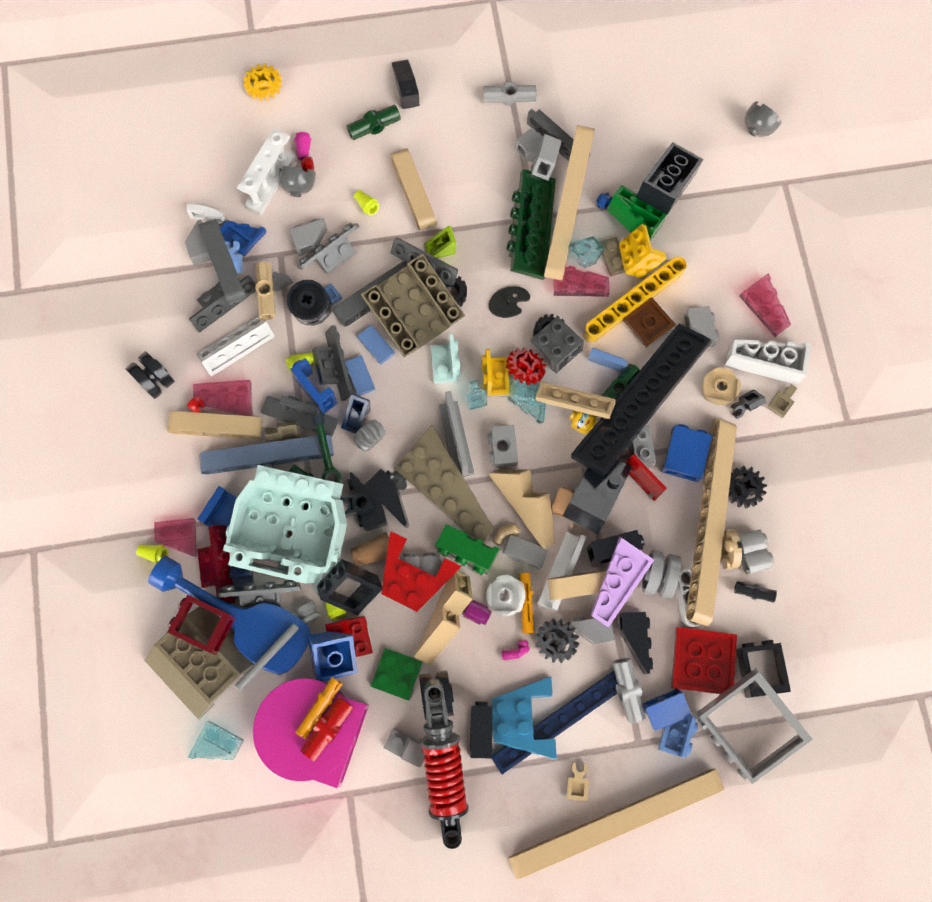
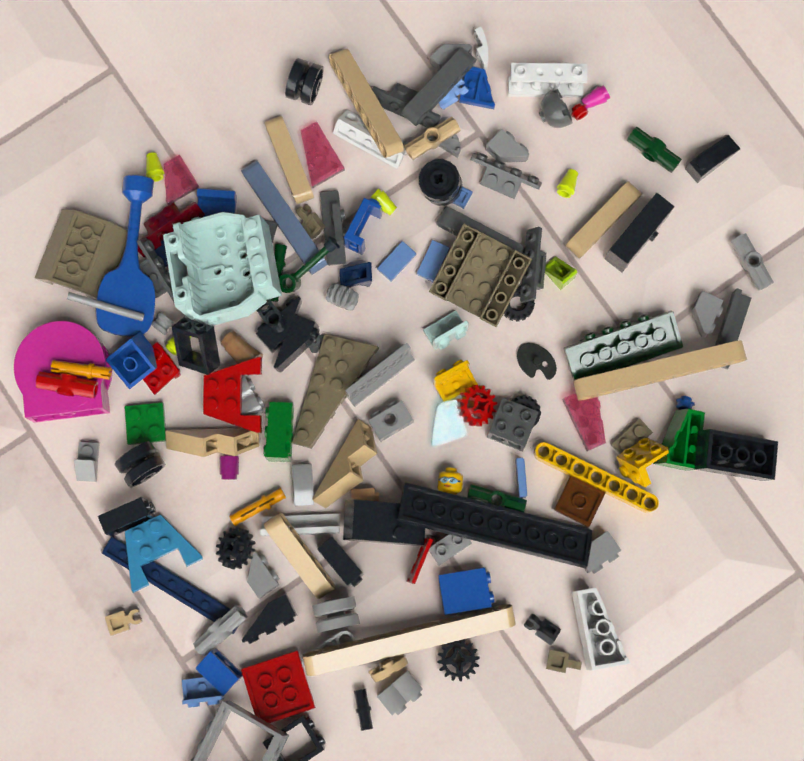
camera: 70 degrees right, 5 degrees up
(195, 403) = (297, 133): red hinge -> none
(200, 331) = (366, 103): none -> tan beam
(216, 743) = (21, 302): clear light blue wing -> none
(219, 633) = (107, 258): dark red window -> none
(262, 82) = (649, 24): yellow gear -> none
(331, 364) = (393, 230): dark grey bracket -> none
(441, 164) = (639, 232): none -> black brick
(443, 766) = (82, 496): piece -> none
(477, 397) = (424, 374): clear light blue plate -> none
(505, 530) = (314, 458): tan arm -> none
(516, 595) = (256, 494): white plate -> none
(516, 653) = (210, 519): dark pink arm -> none
(546, 157) = (694, 327): light grey slope -> none
(575, 400) = (461, 464): tan plate -> none
(586, 251) = (618, 409): clear light blue slope -> none
(615, 823) = (105, 670): tan beam -> none
(621, 578) = (313, 578): lavender wing -> none
(729, 380) = (557, 603): tan plate -> none
(765, 304) = (655, 604): clear pink wing -> none

